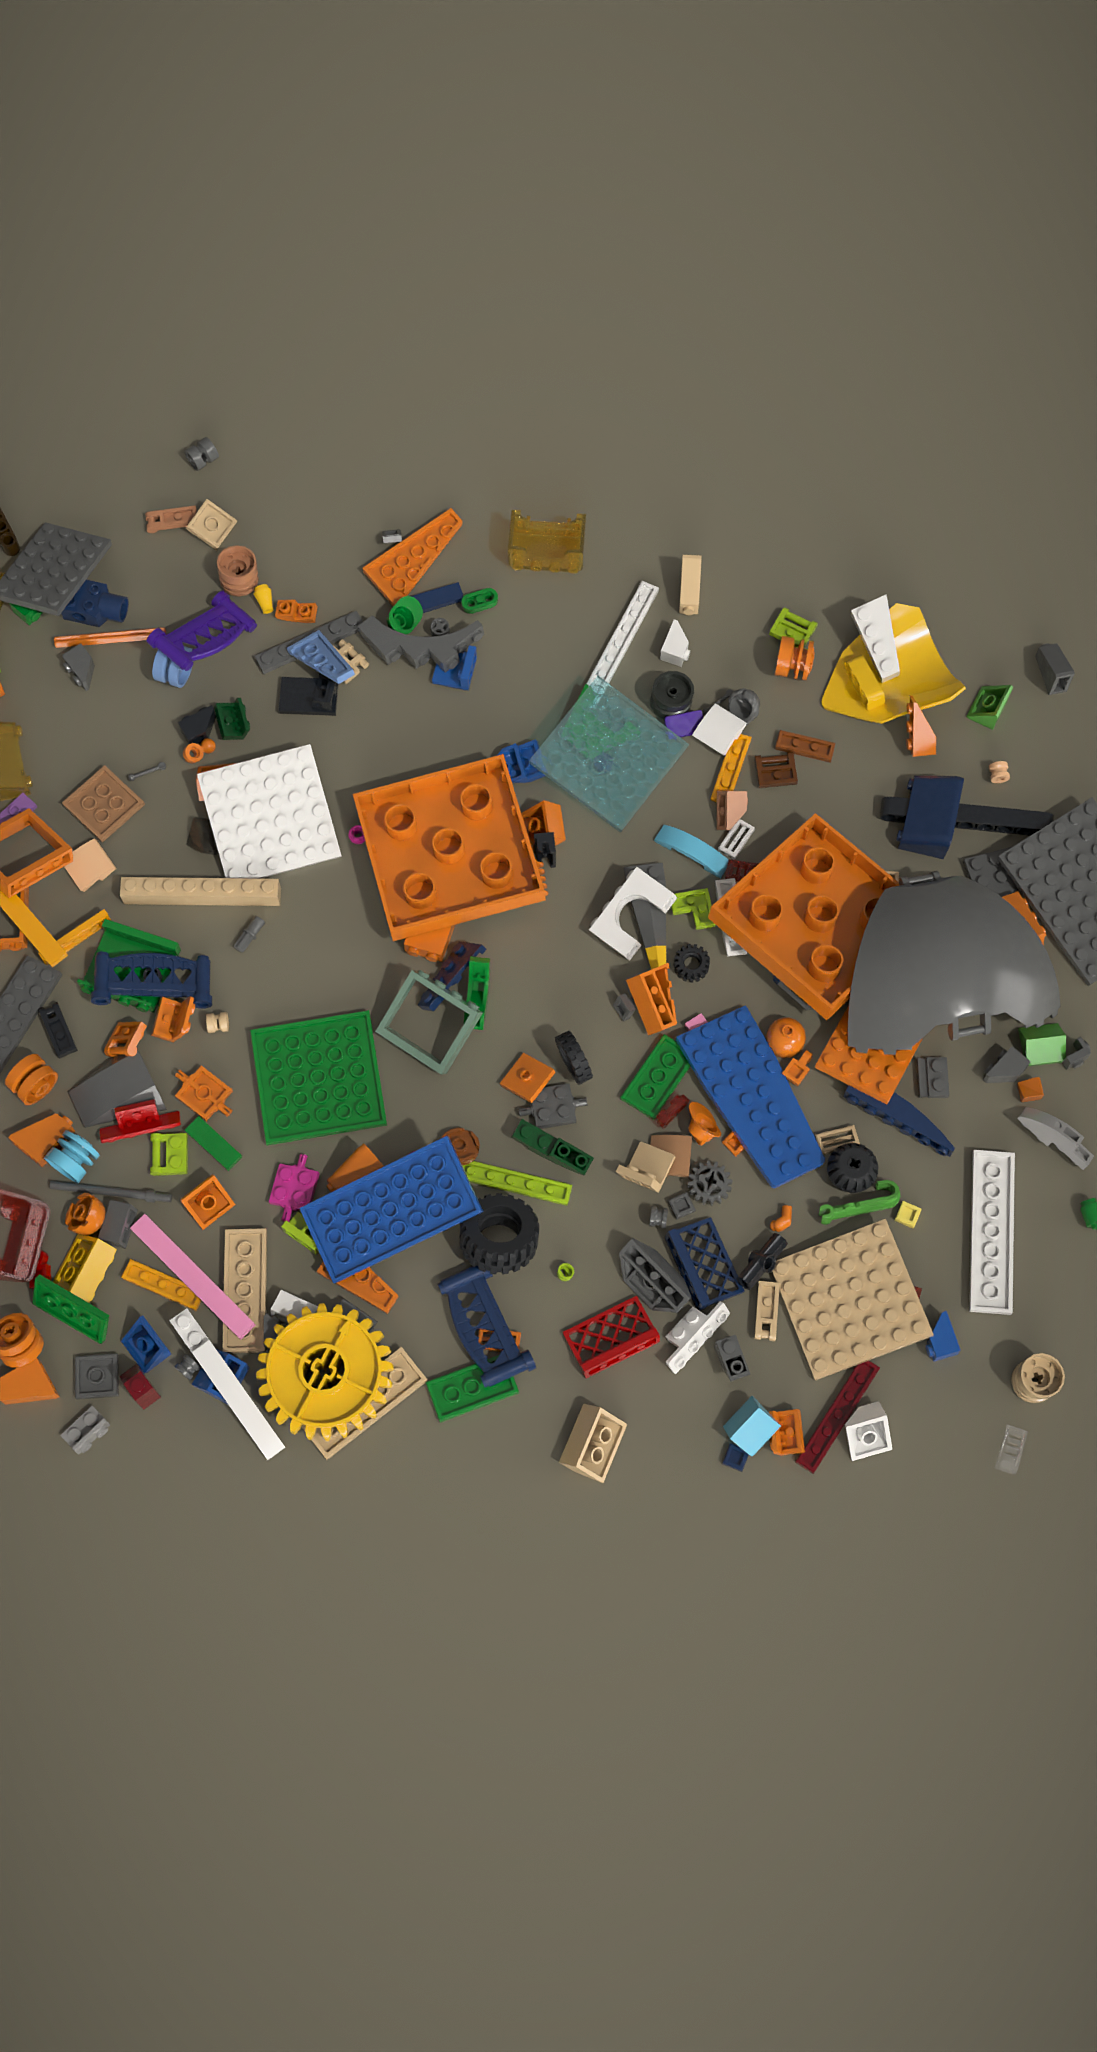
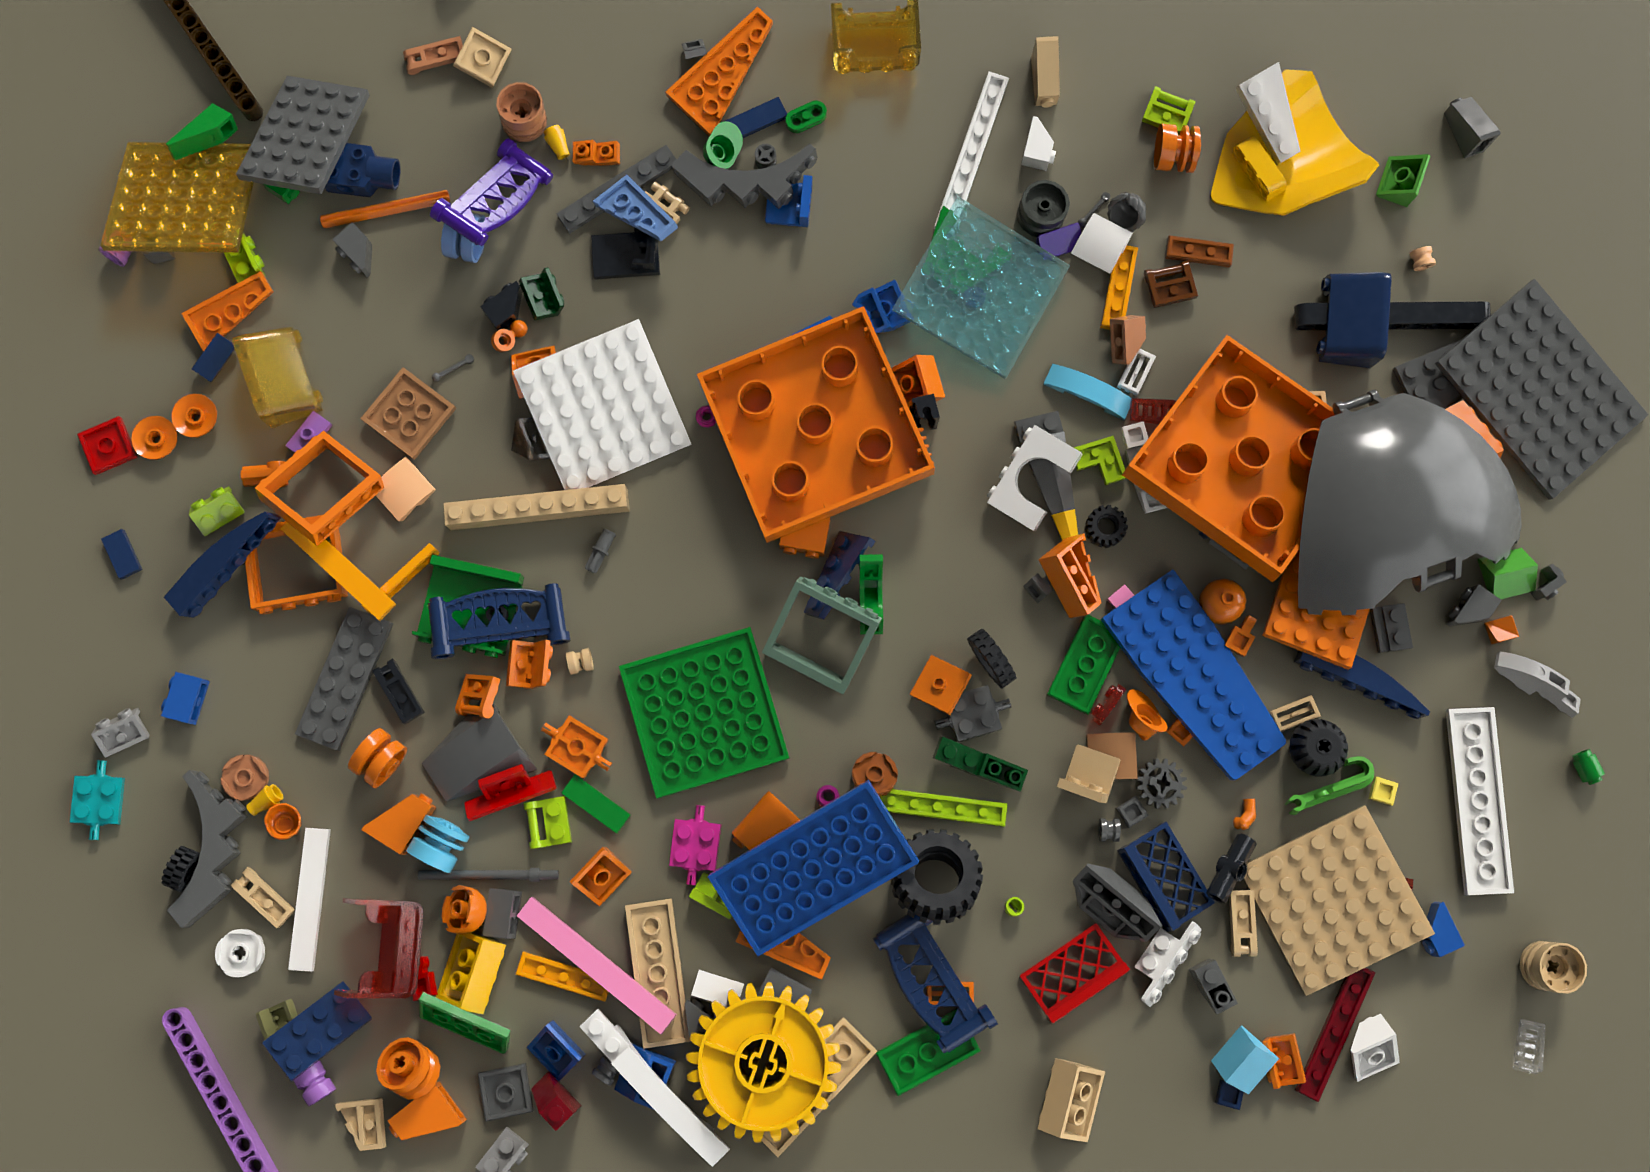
camera: 10 degrees left, 10 degrees up
(921, 736) = (1332, 226): slope -> none

